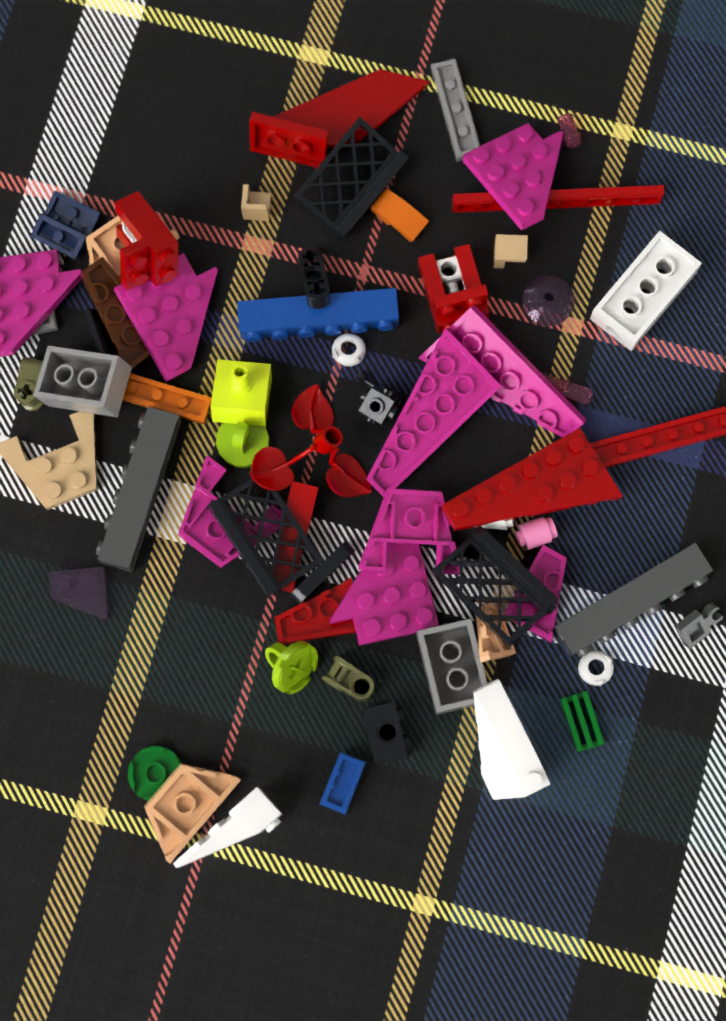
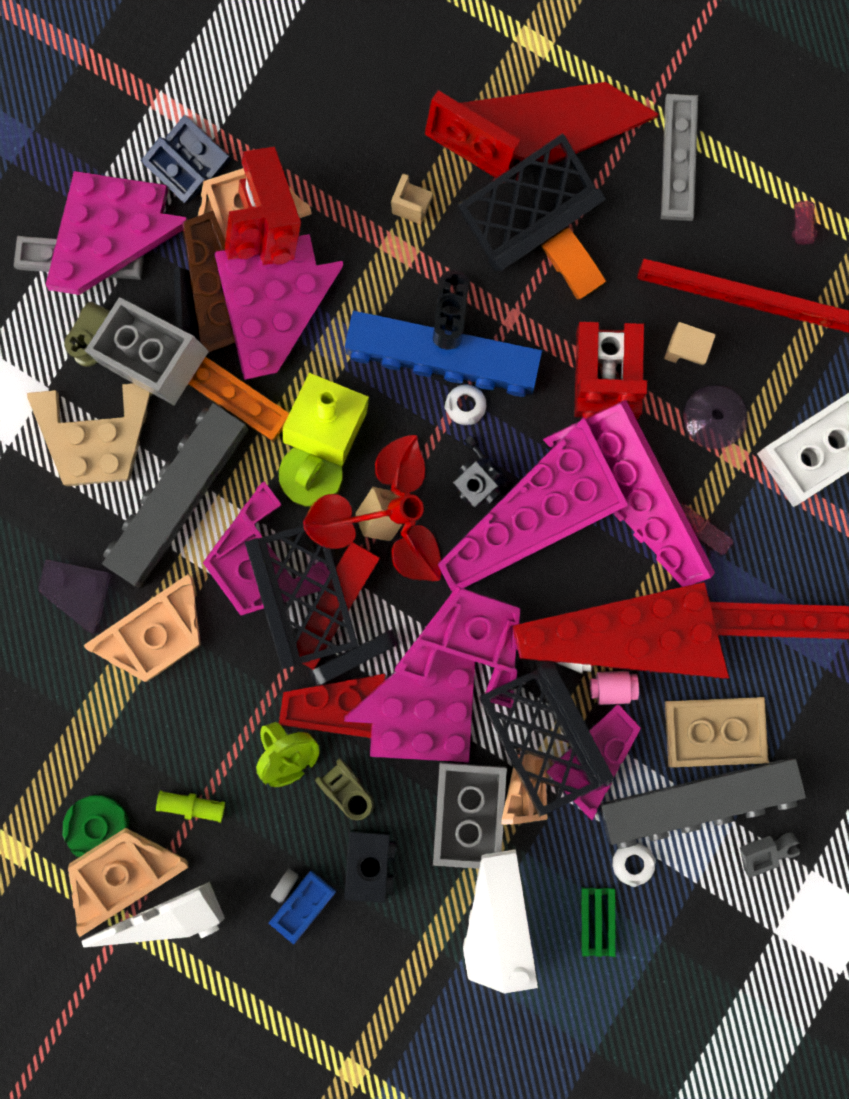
camera: 20 degrees right, 5 degrees up
(155, 604) = (153, 633): none -> light nougat wing
(227, 731) = (190, 806): none -> lime pin
(313, 462) = (378, 528): none -> tan panel
(323, 770) = (284, 886): none -> light grey tile
(518, 172) = (728, 255): dark pink wing -> none
(627, 544) = (716, 732): none -> tan tile

